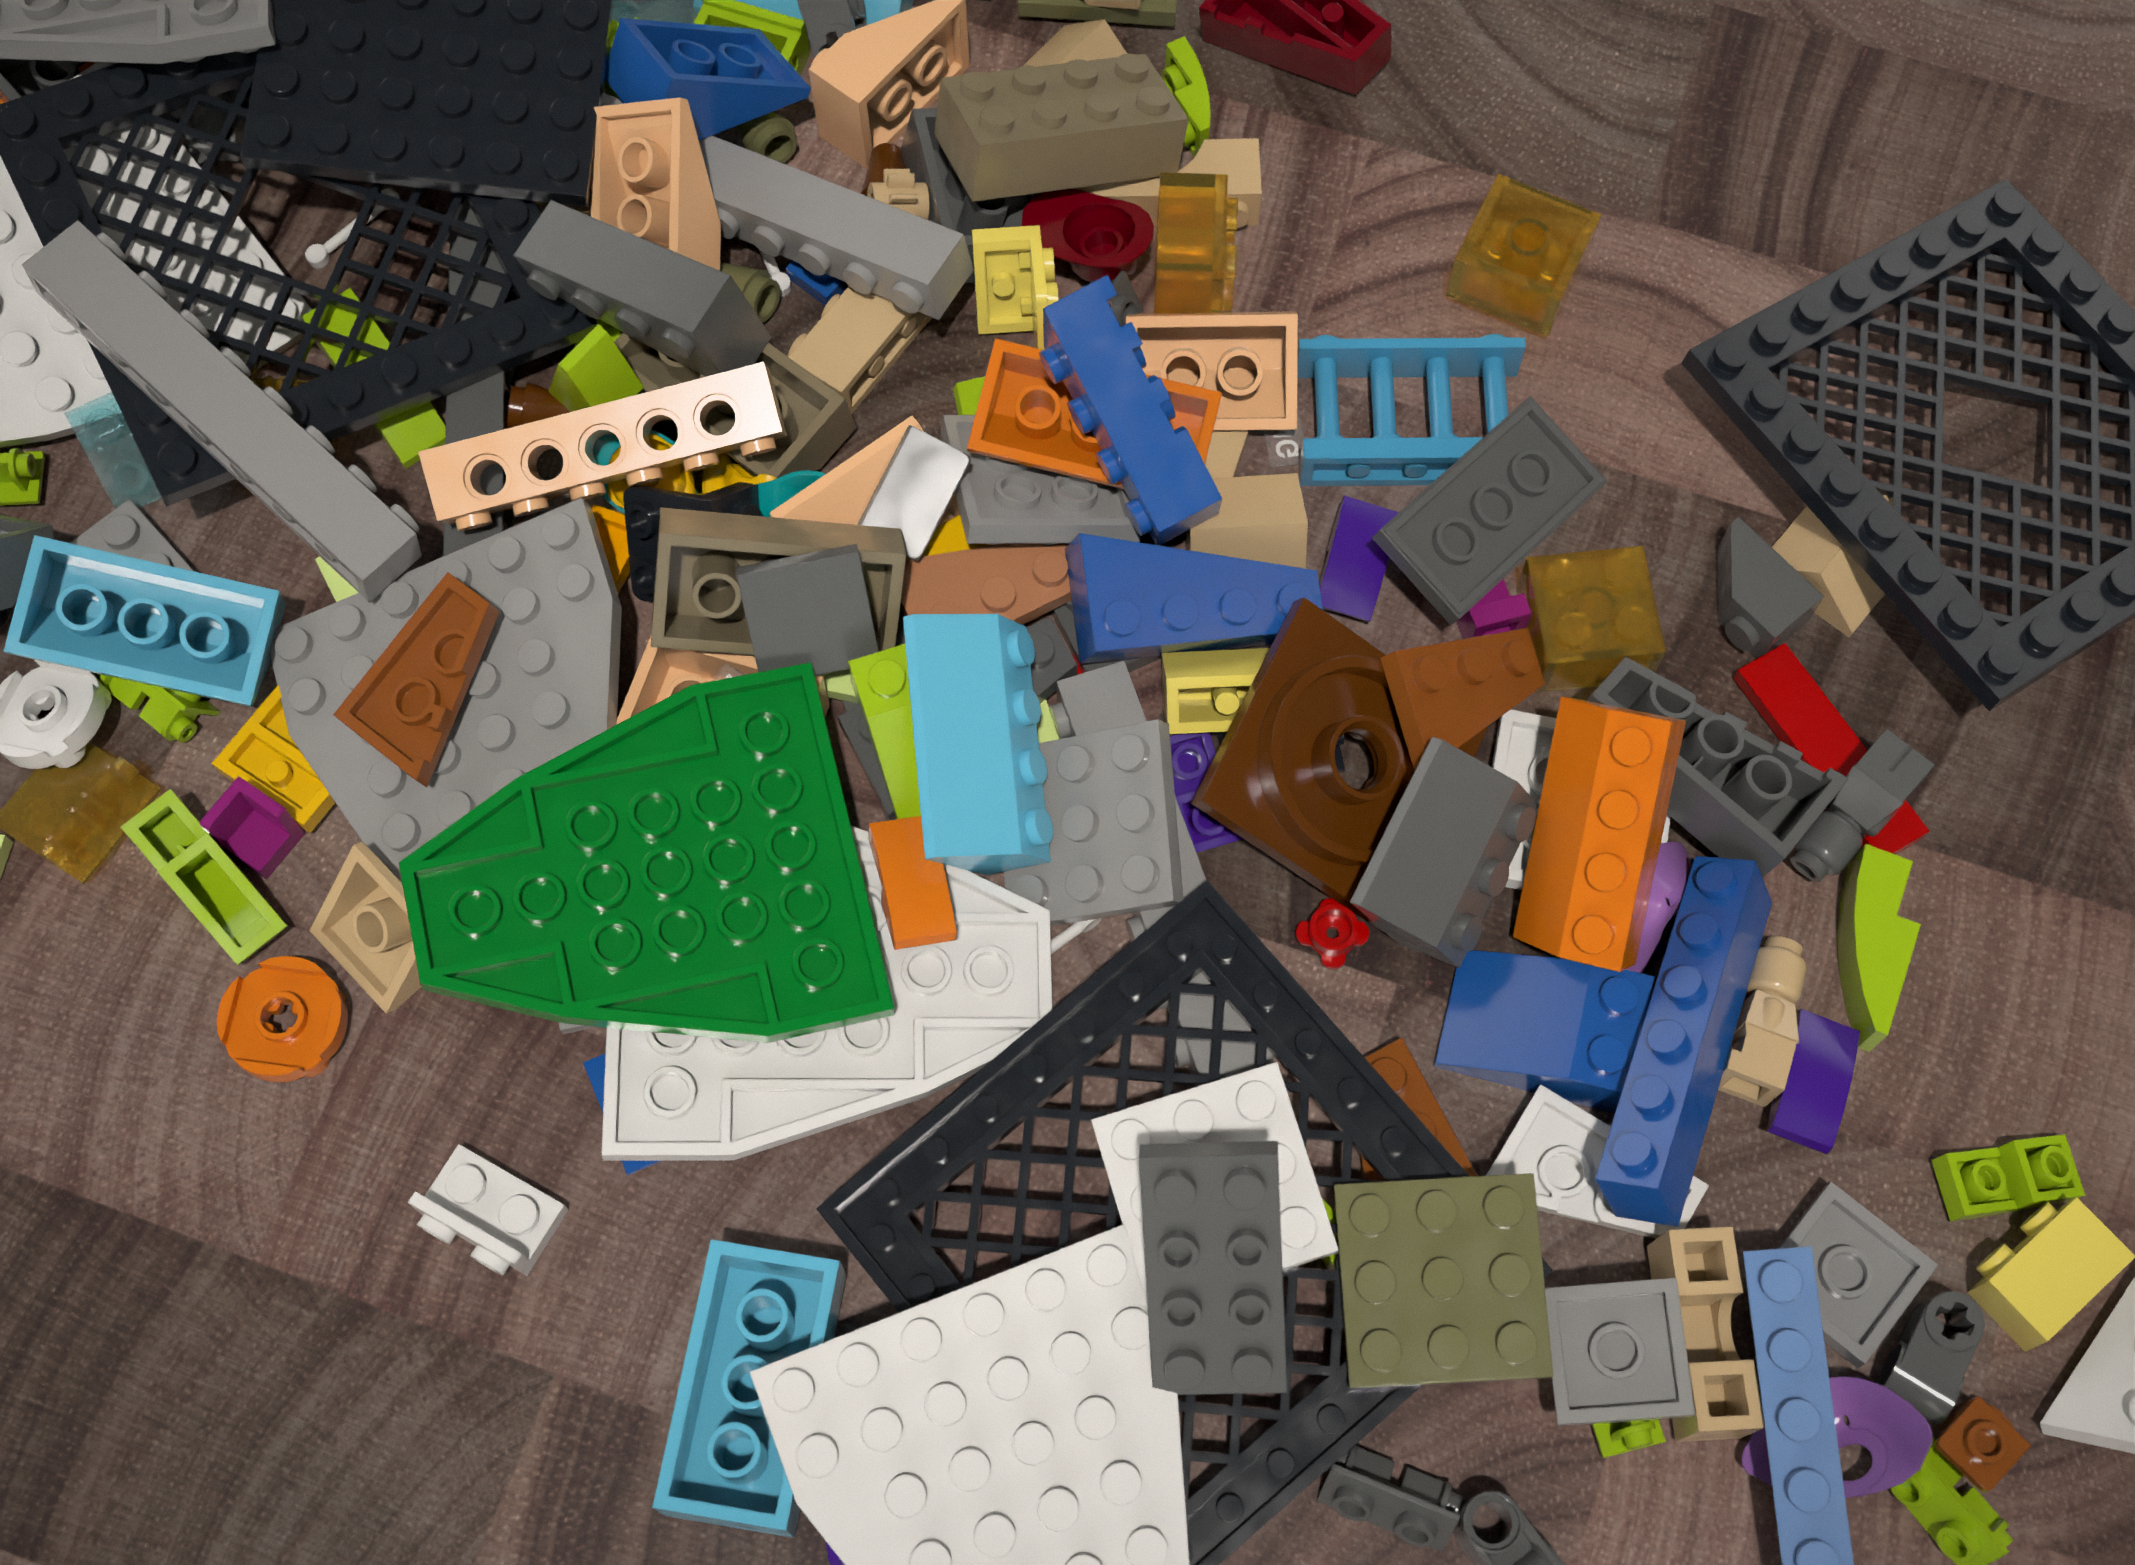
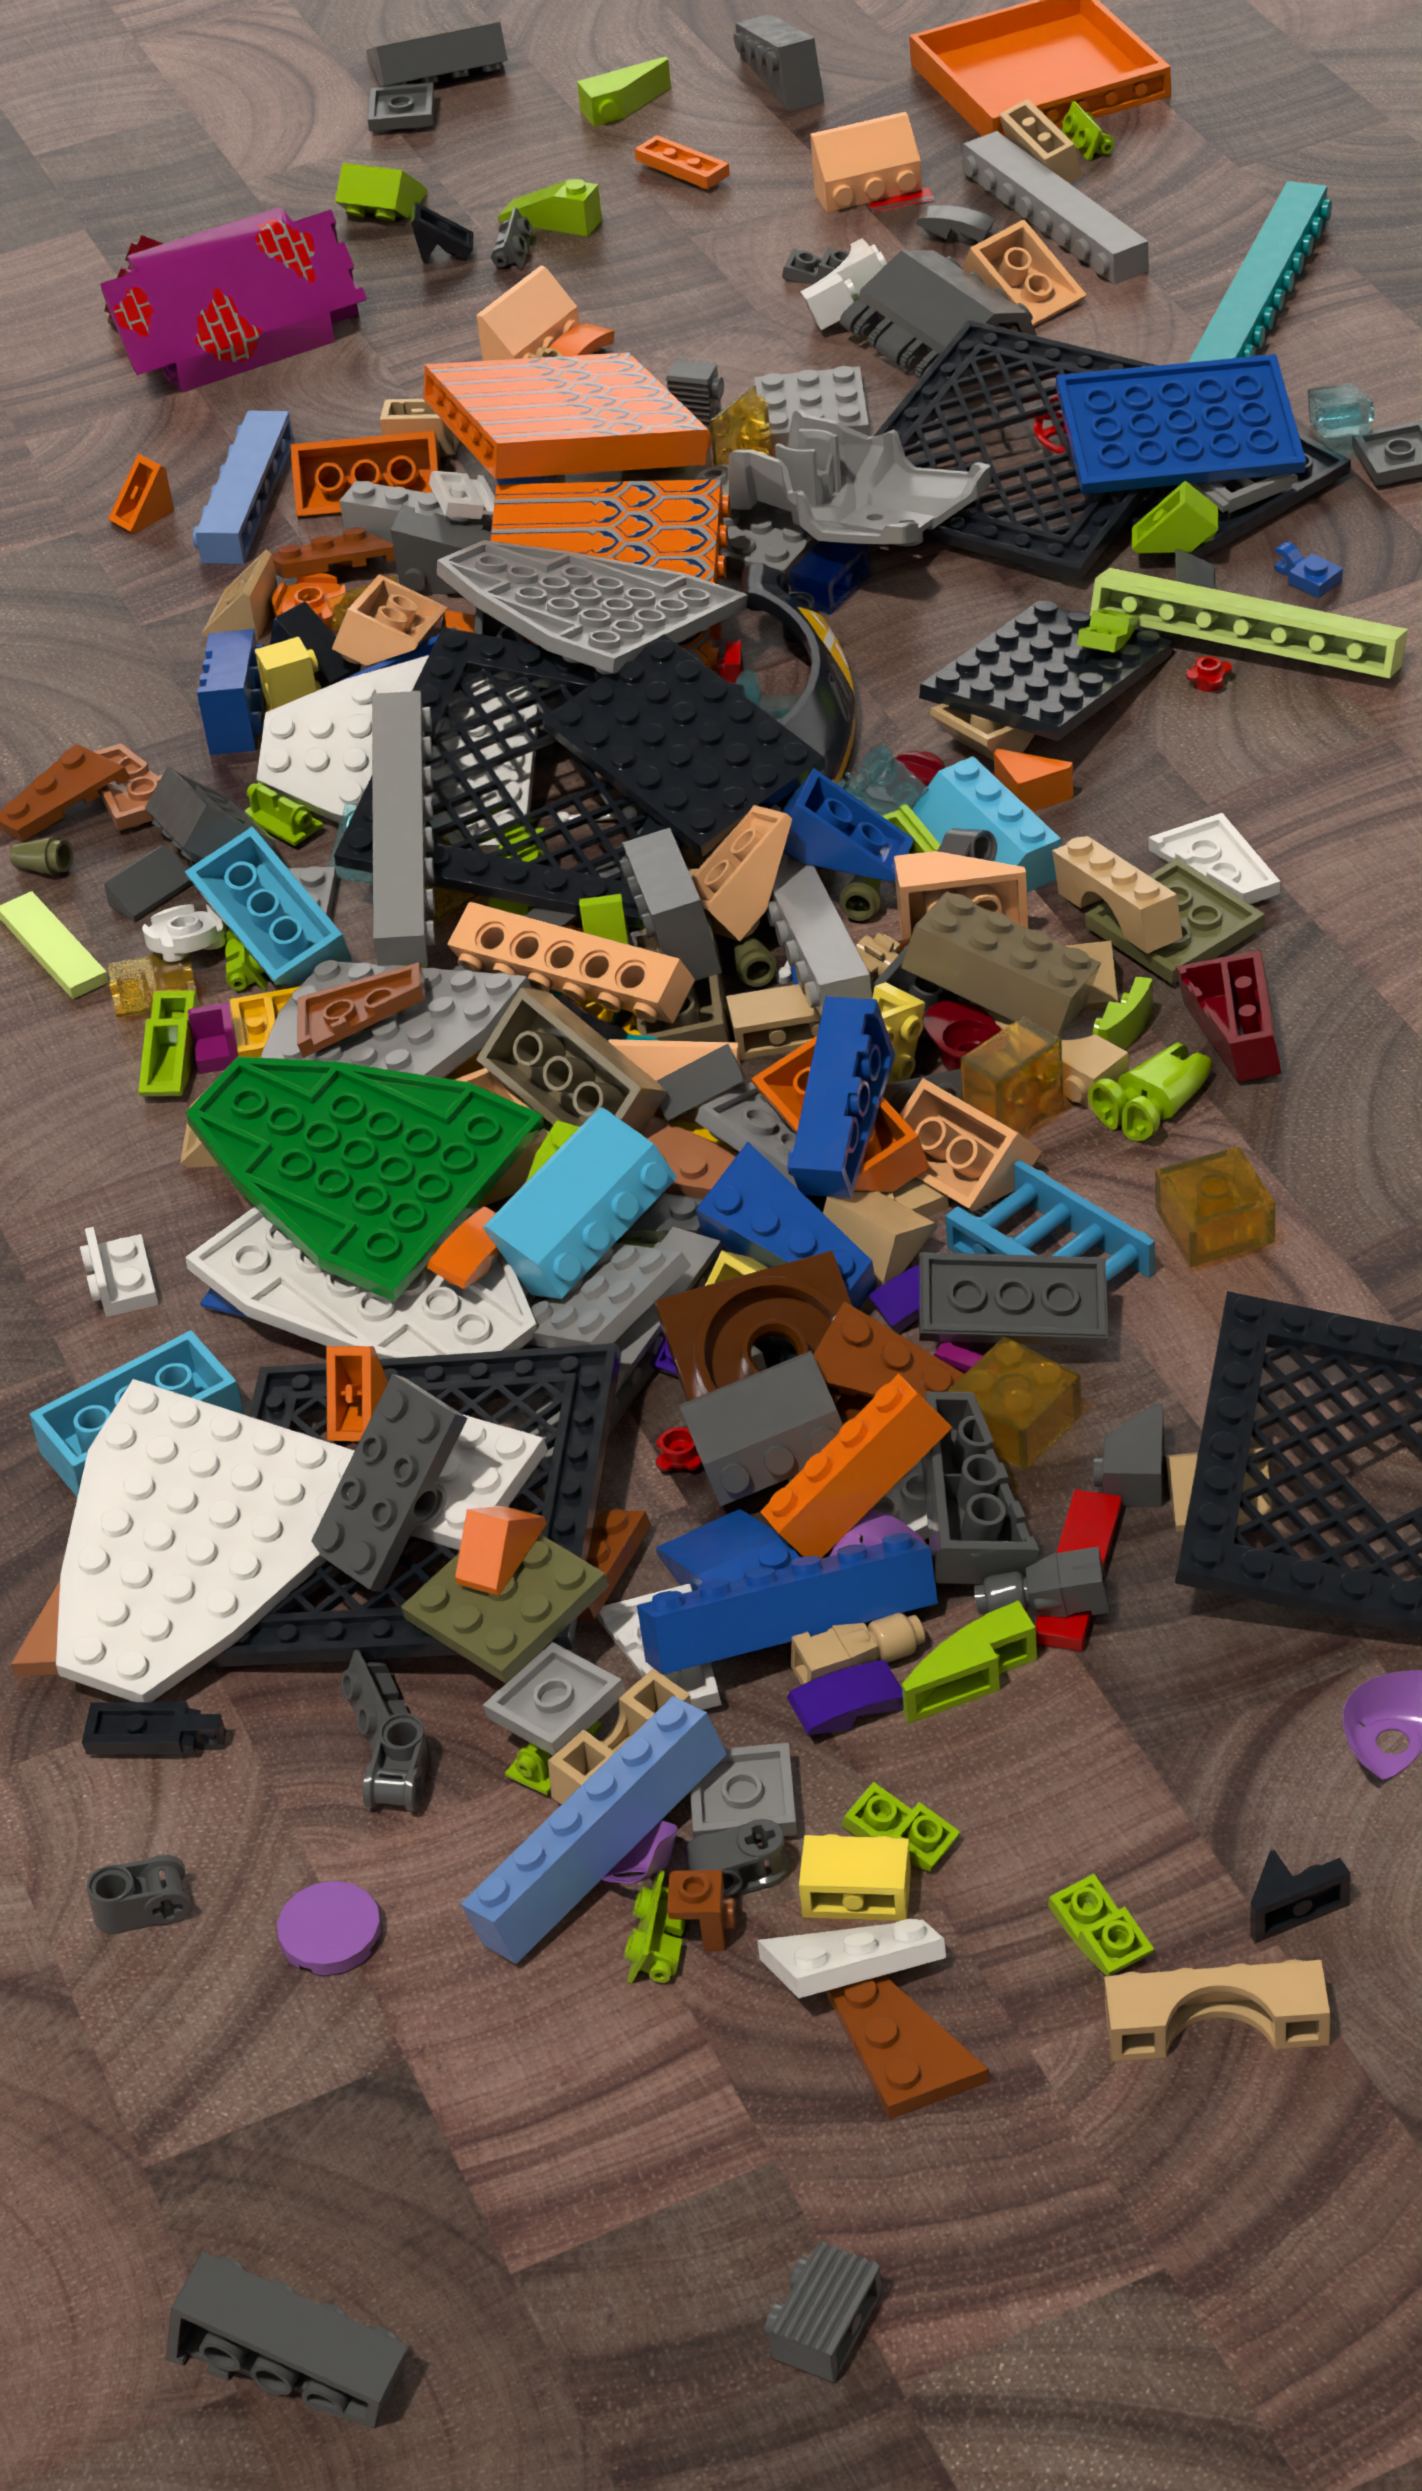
camera: 50 degrees right, 25 degrees down
(302, 1048) = (150, 1134): orange plate -> none
(808, 610) = (565, 1081): dark grey tile -> none
(1005, 1177) = (353, 1390): none -> orange slope
(1308, 144) = (1149, 1091): none -> lime piece
(1406, 1239) = (495, 1546): none -> orange slope

